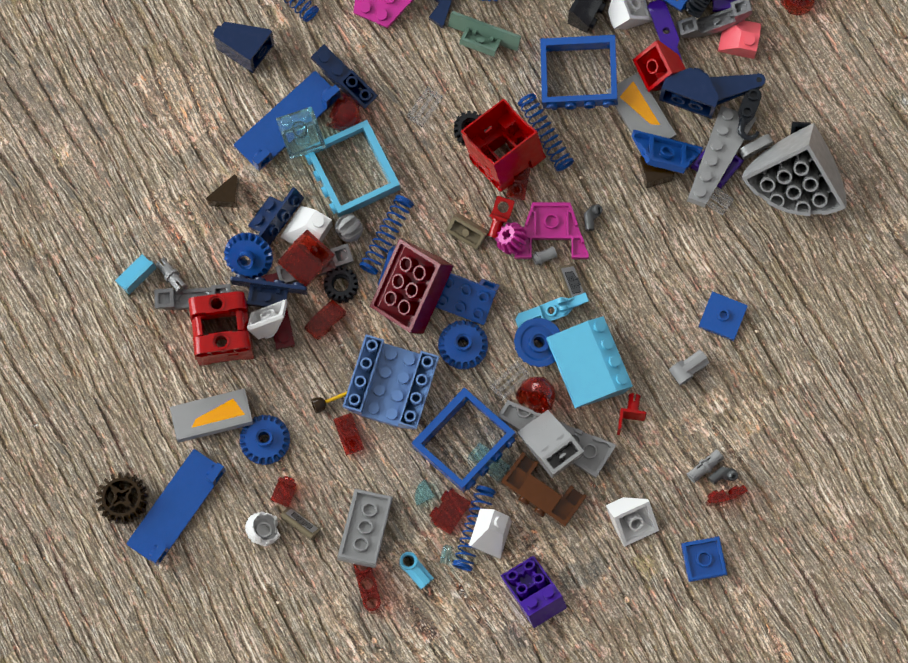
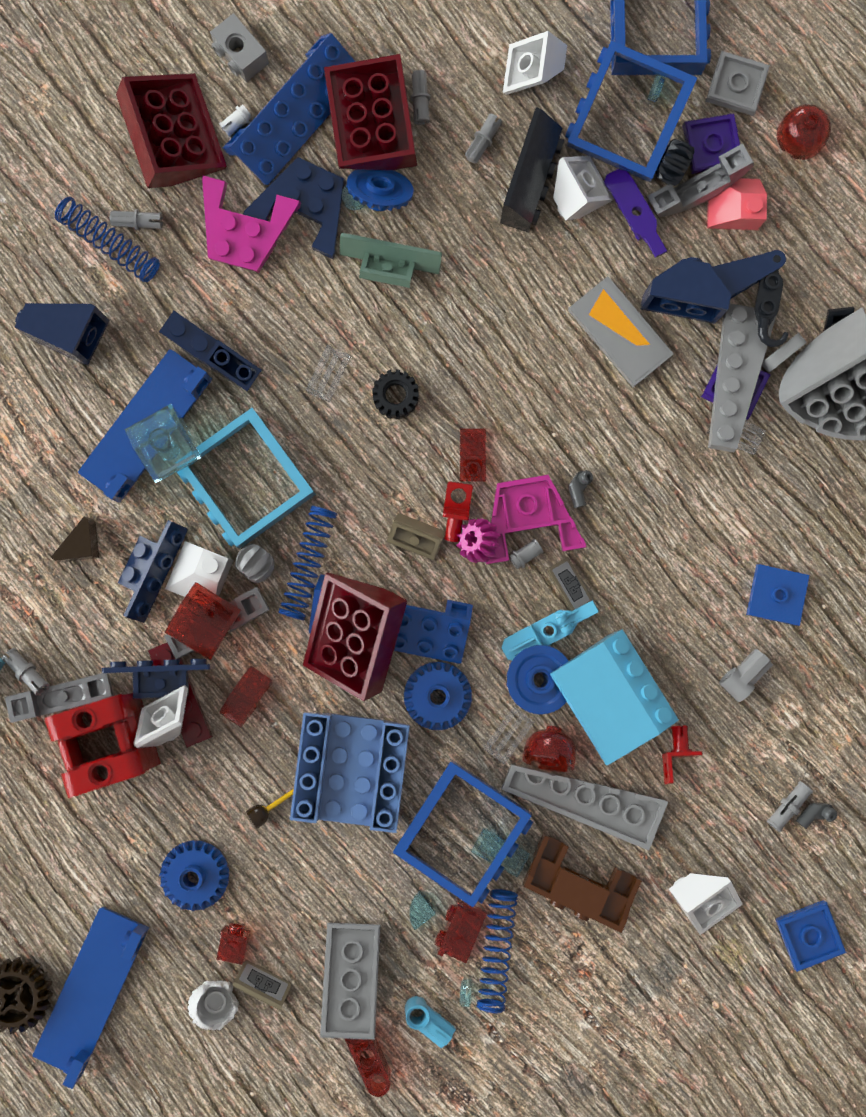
camera: 15 degrees left, 10 degrees up
(211, 415) = (115, 858): light grey tile -> none
(253, 247) = (124, 627): blue gear -> none
(343, 295) = (242, 643): black tyre -> none
(344, 113) = (220, 403): clear red cylinder -> none
(348, 434) = (306, 848): clear red slope -> none
(490, 532) = (520, 956): white slope -> none
(508, 128) = (441, 384): red piece -> none
(534, 591) = (591, 1021): dark purple slope -> none
(551, 443) = (582, 822): light grey slope -> none
(560, 166) = (460, 345): blue piece -> none
(579, 43) = (523, 249): blue window -> none
(654, 175) = (652, 413): dark brown slope -> none
(656, 64) = (636, 262): red slope -> none
(665, 152) = (665, 382): blue wing -> none
(719, 498) = (816, 849): clear red slope -> none

